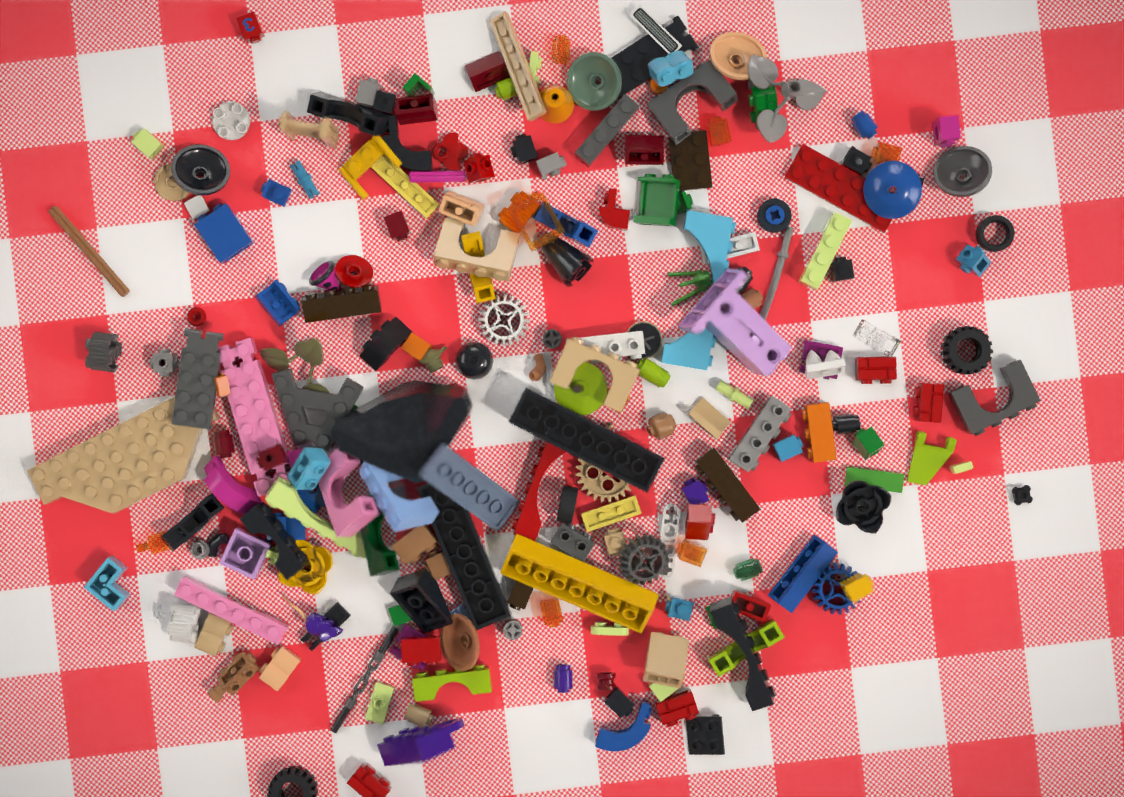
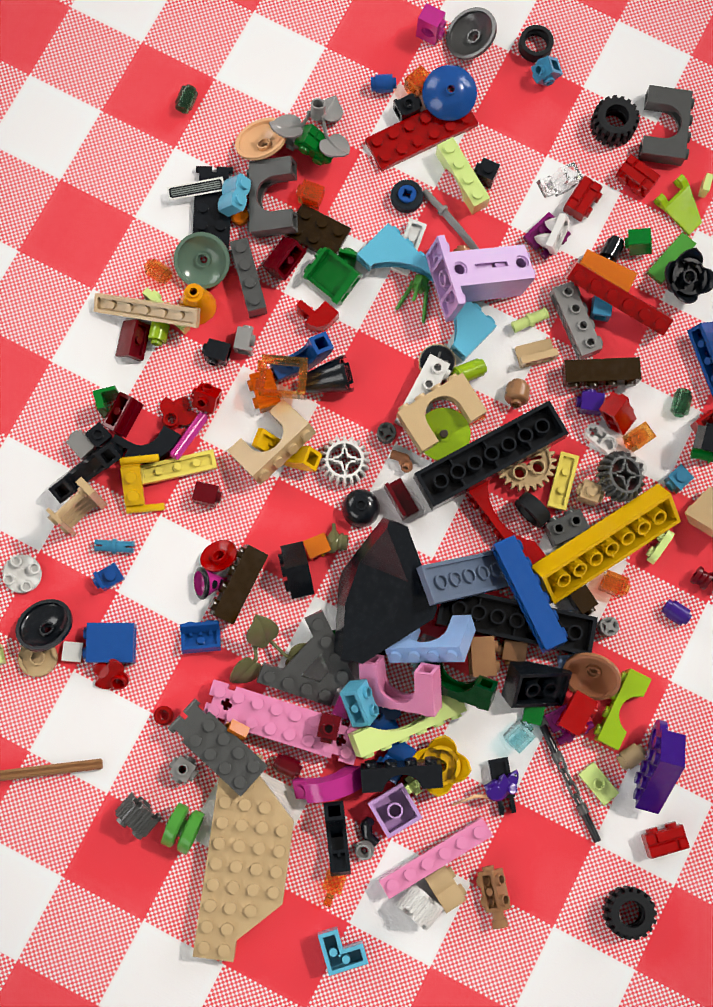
camera: 65 degrees left, 10 degrees down
(117, 393) = (181, 827): none -> bright green wheel
(198, 252) = (111, 675): none -> red plate
(279, 668) = (513, 850): light nougat brick -> none
(373, 614) = (519, 735): none -> clear light blue brick
(461, 208) = (229, 432): light nougat brick -> none
(490, 548) = (529, 594): none -> blue brick
(505, 388) = (401, 499): none -> dark red panel
(799, 432) = (619, 298): none -> red arch

